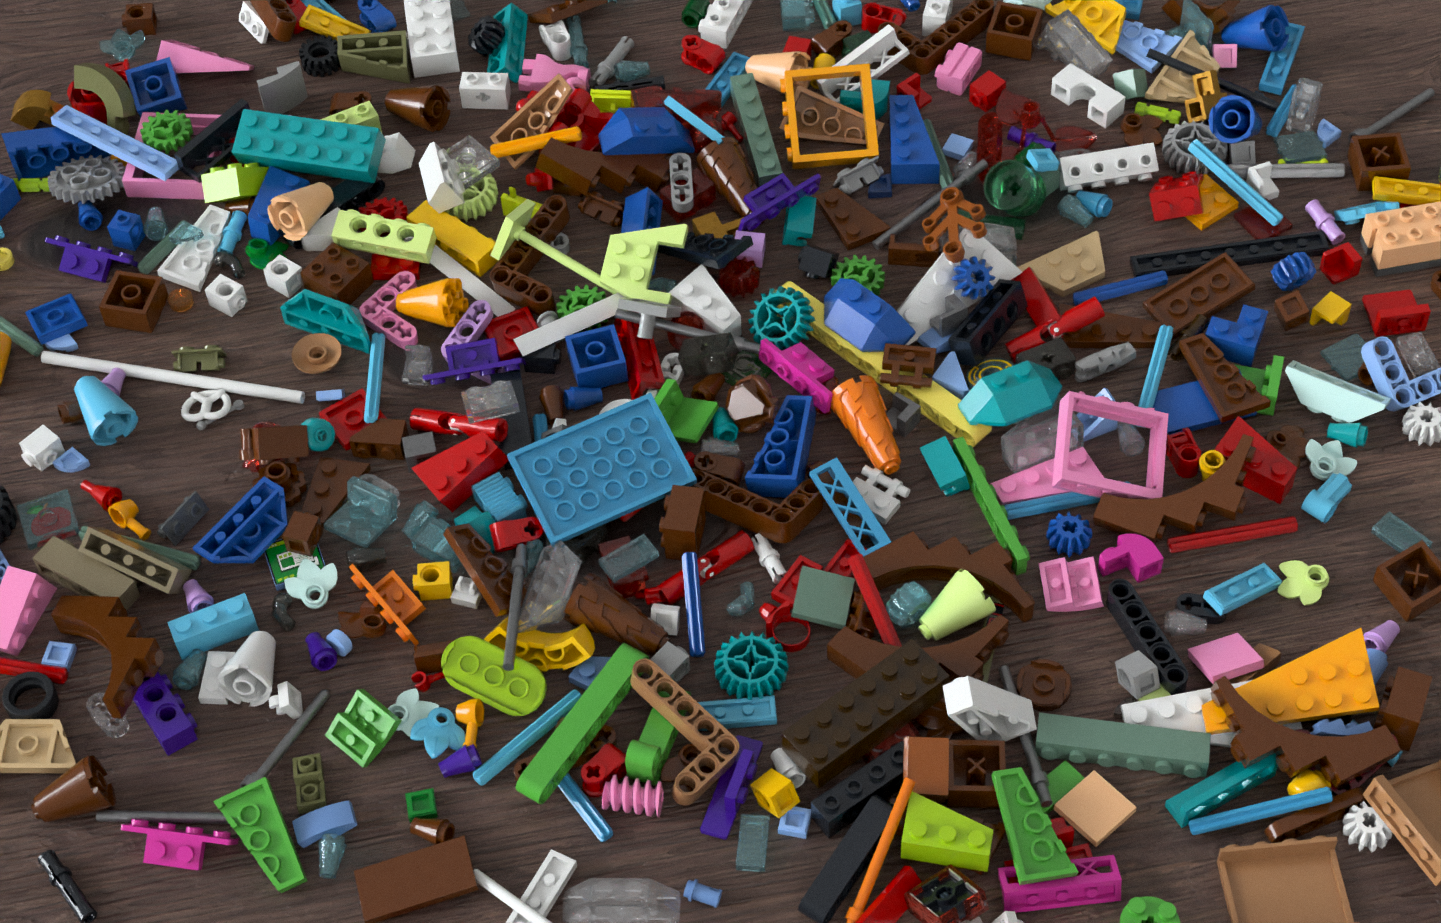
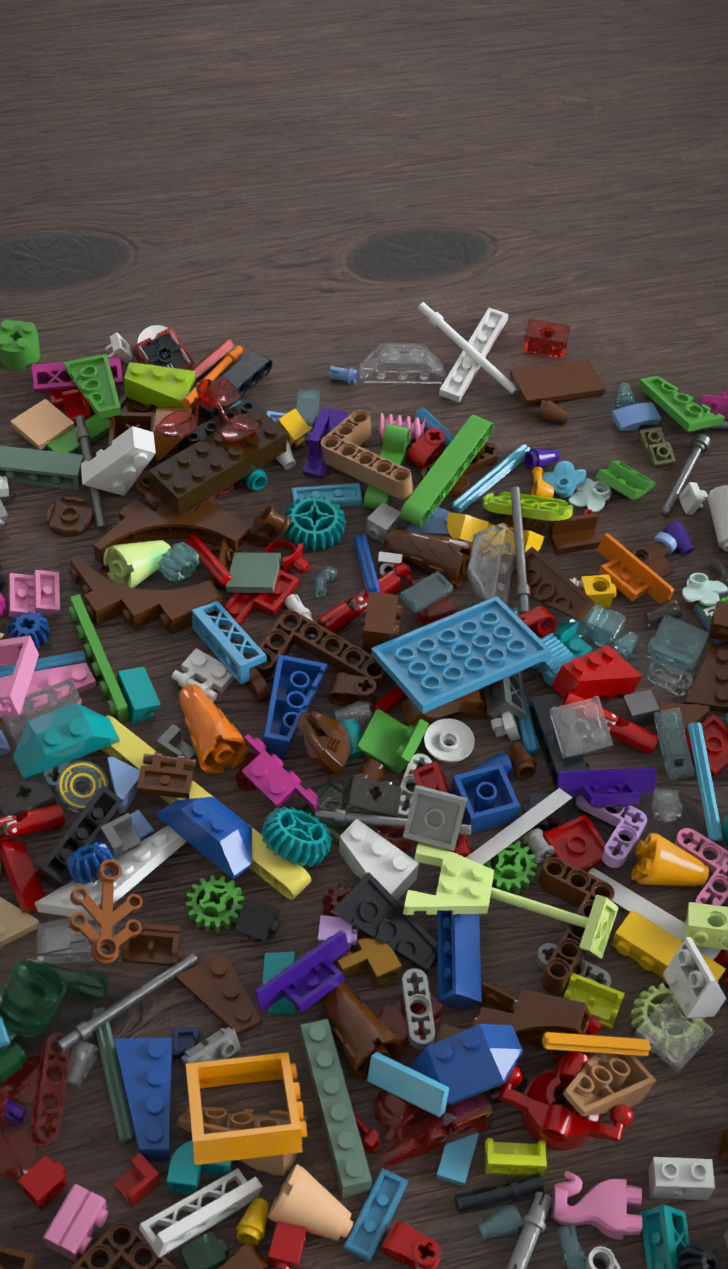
camera: 170 degrees right, 0 degrees up
(396, 407) = (674, 743): none -> clear light blue plate
(421, 804) = (565, 434): green tile -> none
(804, 651) = (268, 527): none -> reddish brown piece
(918, 741) = (211, 395): none -> clear red plant
(957, 146) = (89, 1100): light blue tile -> none

